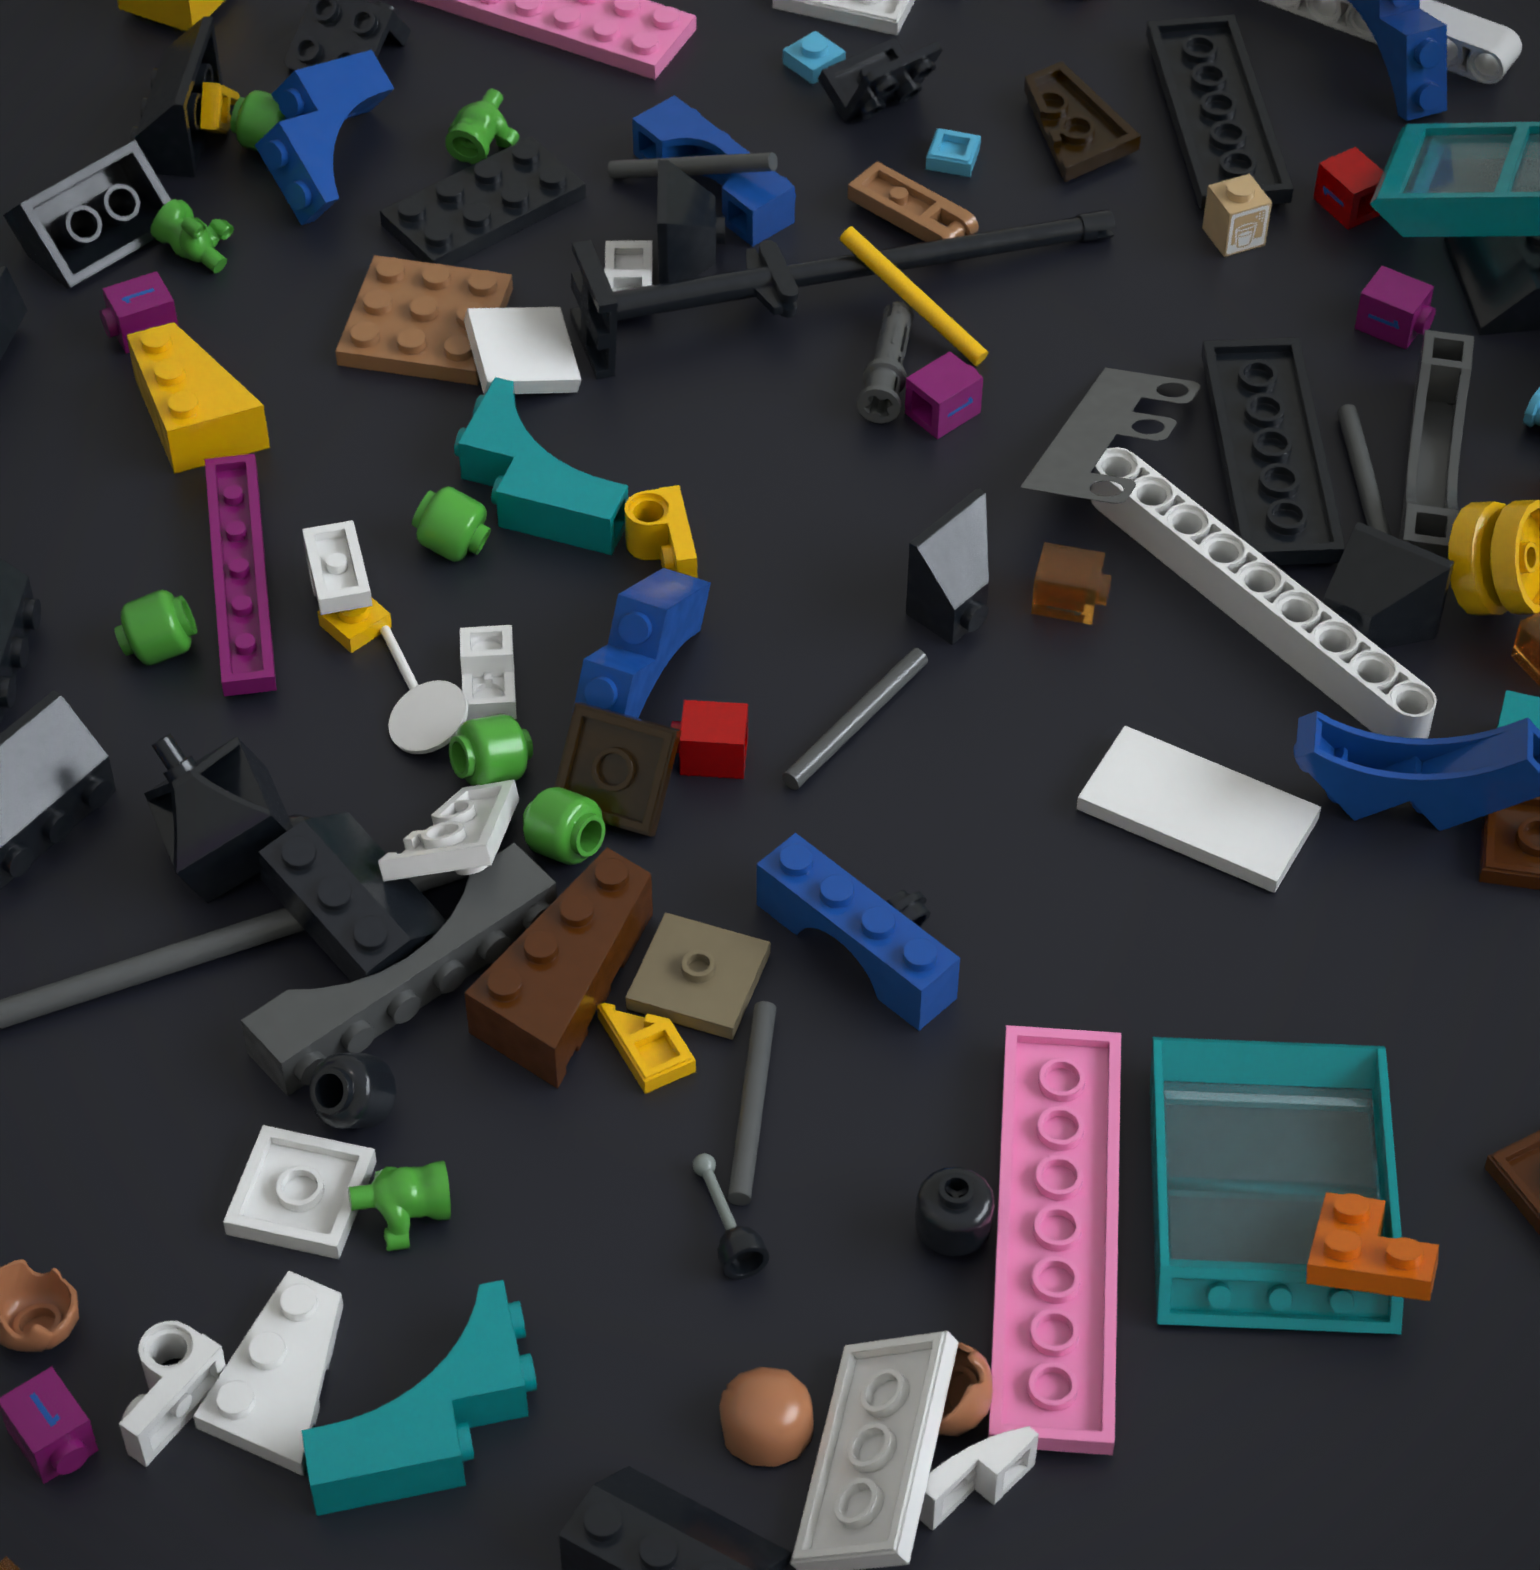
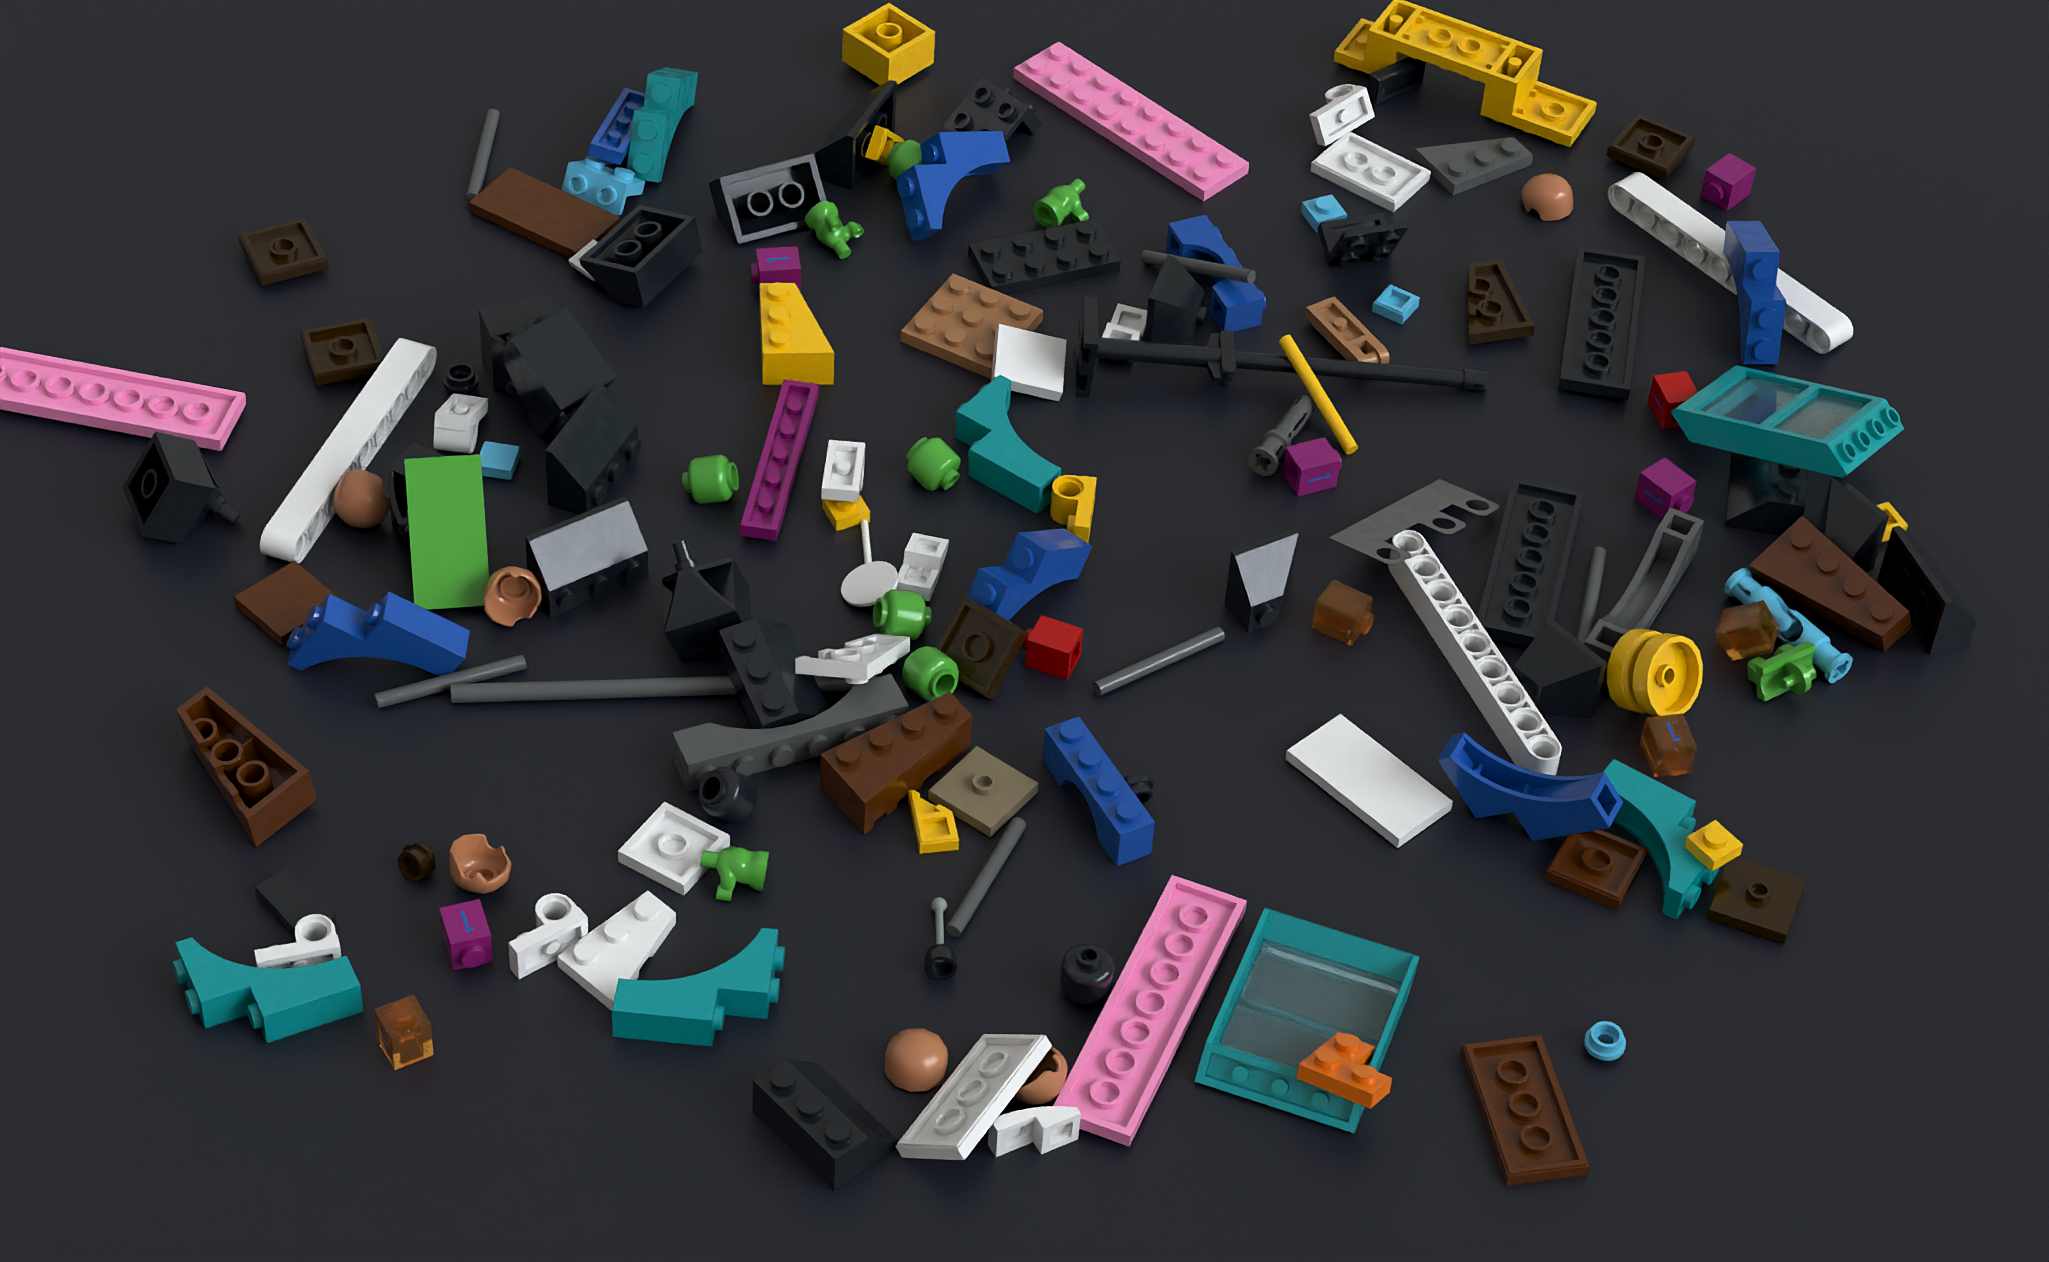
camera: 15 degrees right, 5 degrees down
(1236, 215) = (1579, 397): tan brick -> none

